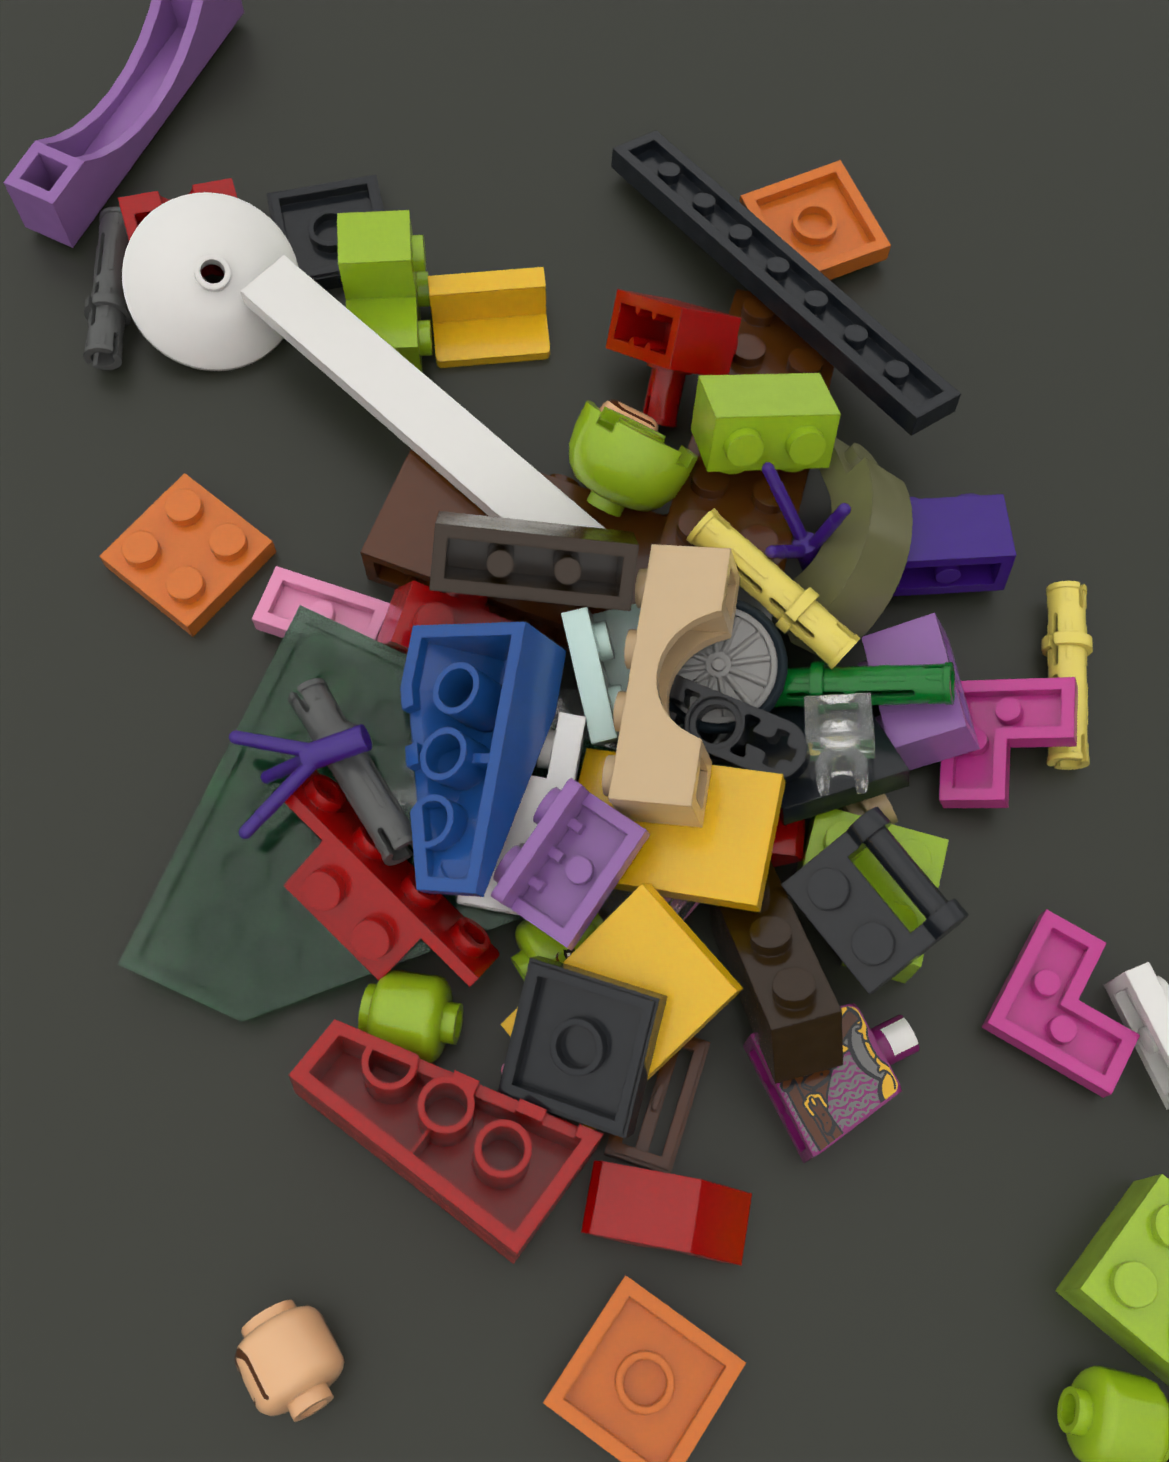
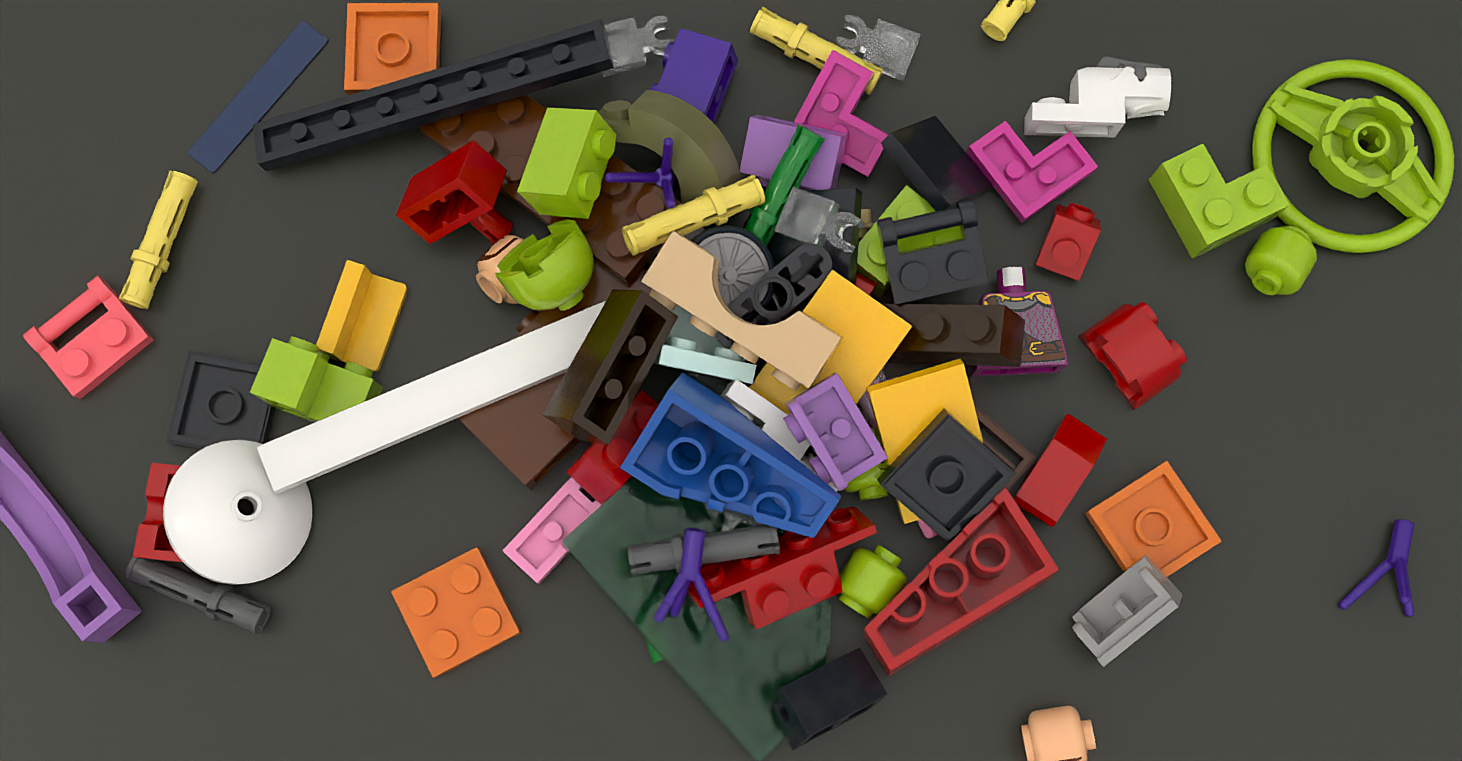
camera: 65 degrees left, 10 degrees up
(232, 1018) = (827, 698): none -> black hinge
(344, 97) = (97, 349): none -> coral plate
(484, 99) = (157, 242): none -> light yellow pin
(506, 1386) = (1126, 610): none -> light grey hinge
(694, 131) = (257, 96): none -> dark blue sticker
(879, 1258) = (1135, 352): none -> red cylinder
(953, 455) = (630, 44): none -> clear plate
(990, 1098) = (1069, 240): none -> red bracket
(1000, 872) = (936, 163): none -> black tile
(1120, 759) = (884, 47): none -> clear plate

